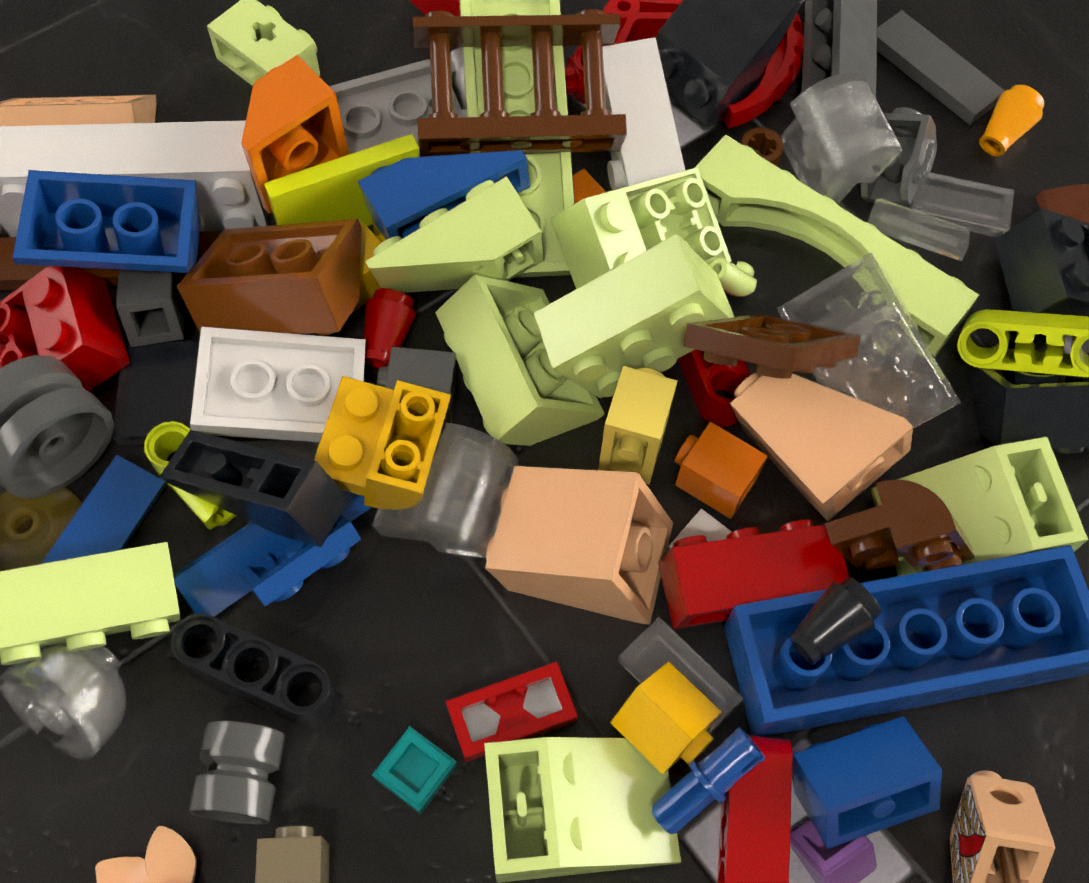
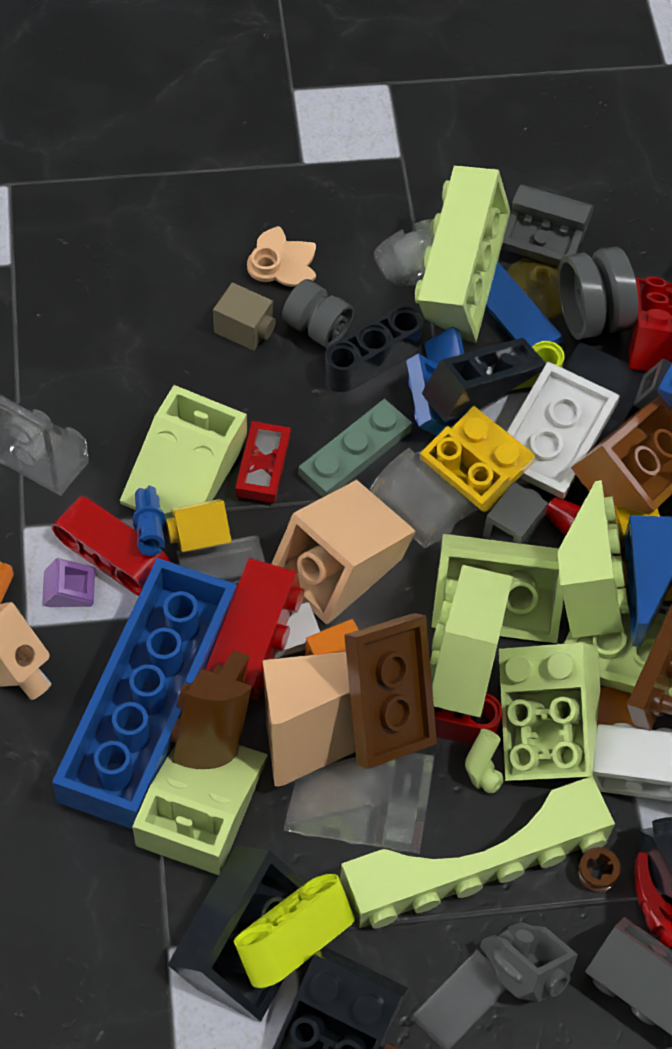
camera: 120 degrees right, 5 degrees down
(415, 770) = (265, 403): teal tile -> none
(419, 617) = (355, 448): none -> sand green plate
(637, 422) = (395, 597): light yellow brick -> none
(835, 620) = (185, 622): black cone -> none
(839, 136) = (563, 903): clear brick -> none
(866, 781) = (90, 611): blue brick -> none
(920, 229) = (453, 935): clear tile -> none

